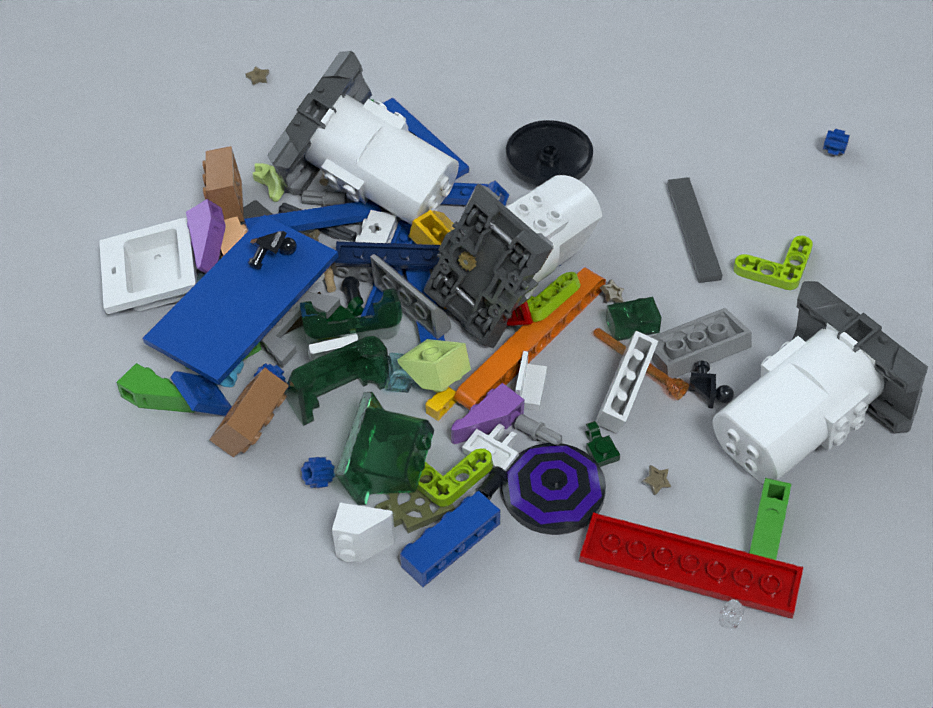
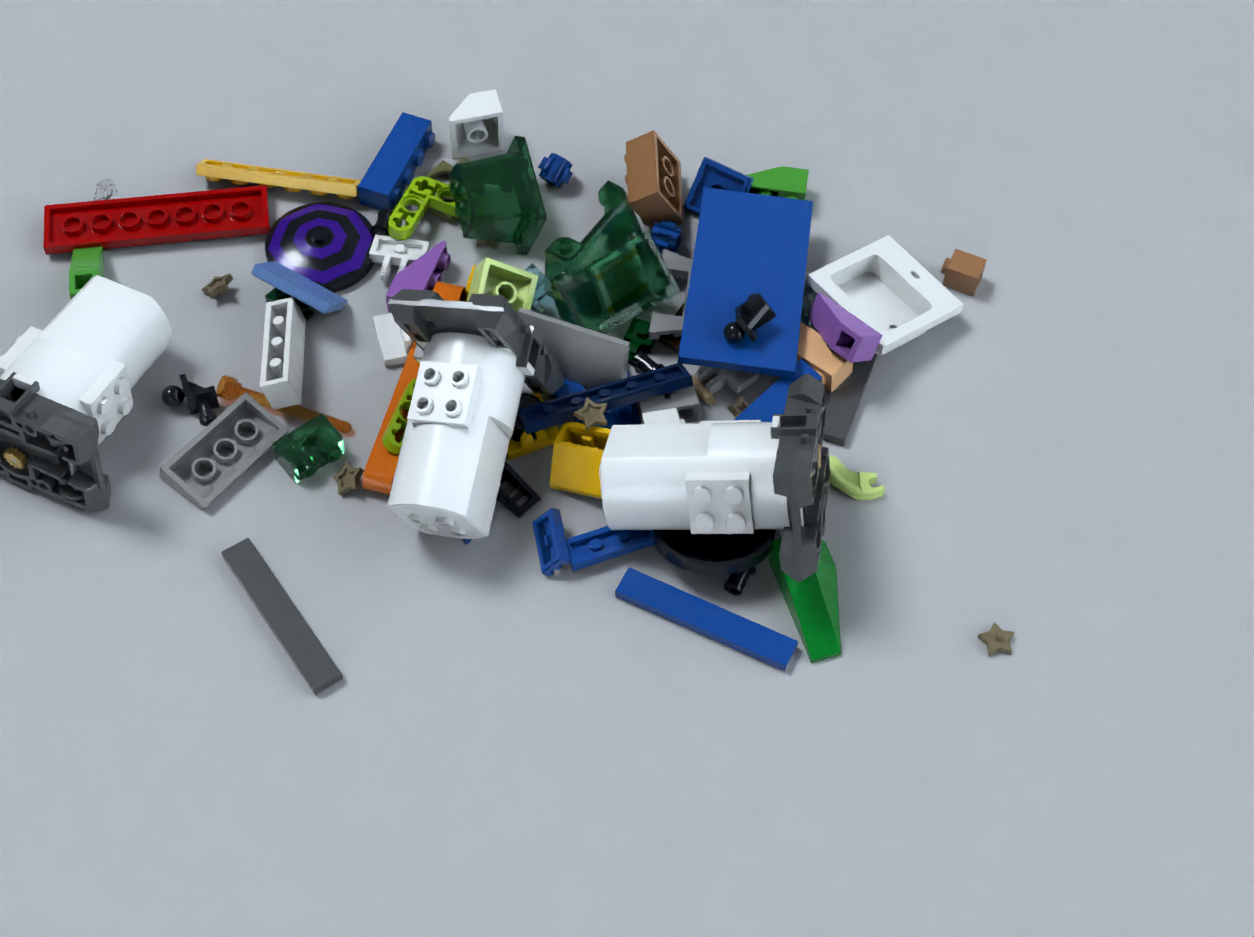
camera: 150 degrees right, 5 degrees up
(71, 273) = (963, 272): none -> medium nougat brick
(223, 182) = (880, 412): medium nougat brick -> none
(424, 236) = (592, 414): none -> dark tan piece
(537, 430) = (359, 289): light grey axle -> none
(548, 150) = (515, 639): black dish -> none
(565, 564) = (291, 180): none -> yellow plate
(592, 430) = (299, 287): none -> medium blue tile
(780, 271) = (149, 590): lime beam -> none
(836, 142) = (116, 833): blue gear -> none

